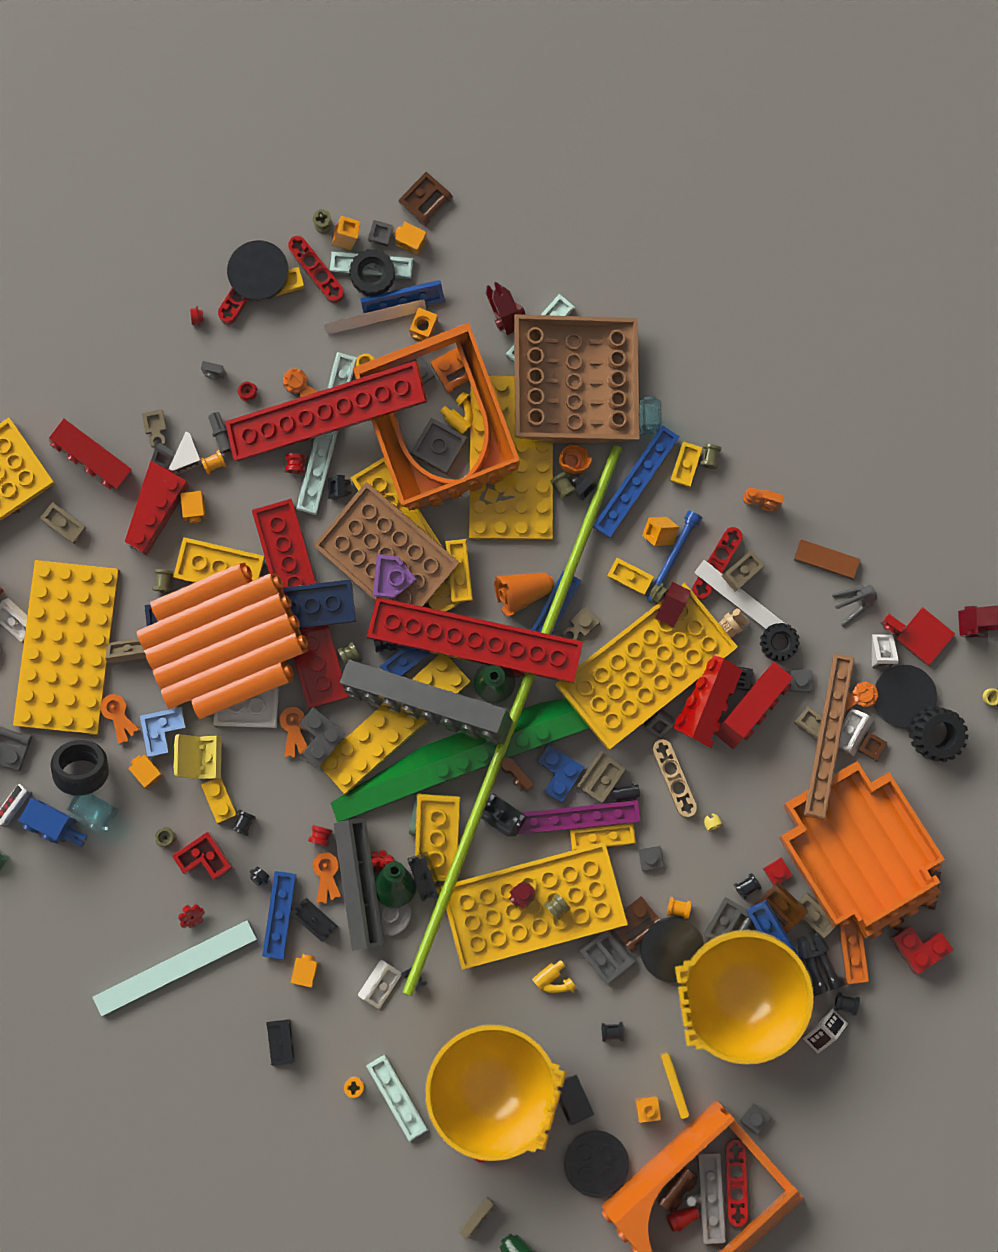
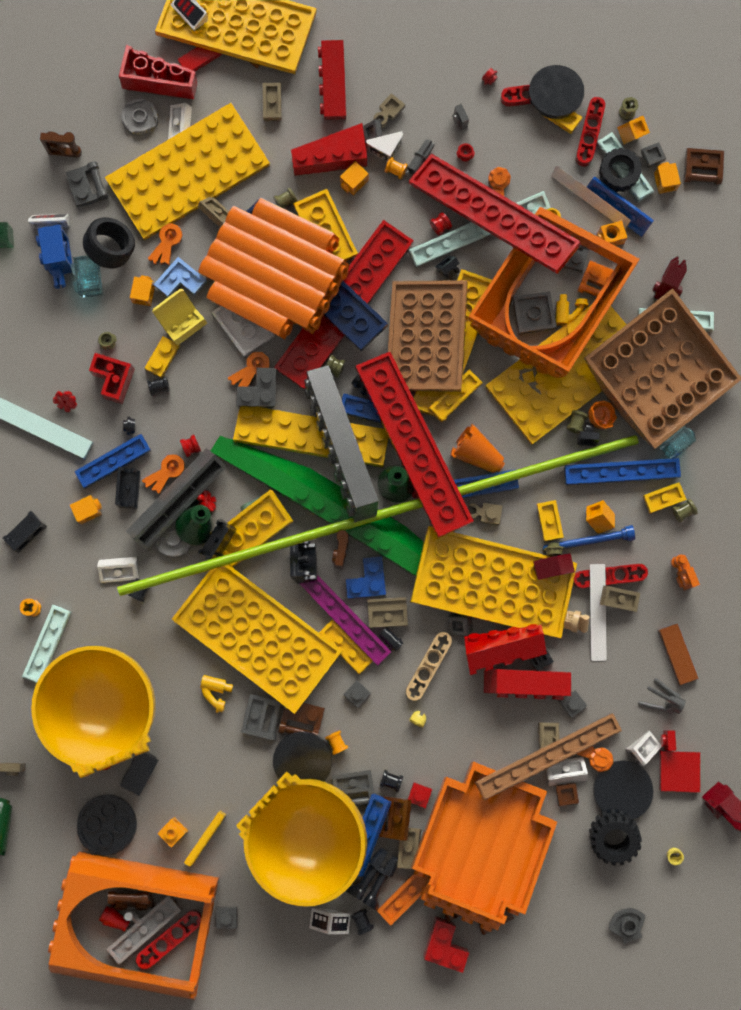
camera: 50 degrees right, 0 degrees up
(391, 576) = (412, 350): medium lavender plate -> none
(522, 895) = (257, 620): dark red plate -> none
(557, 906) = (268, 652): olive wheel -> none
(612, 1032) = (209, 763): black bush -> none
(792, 639) = (600, 671): black tyre -> none

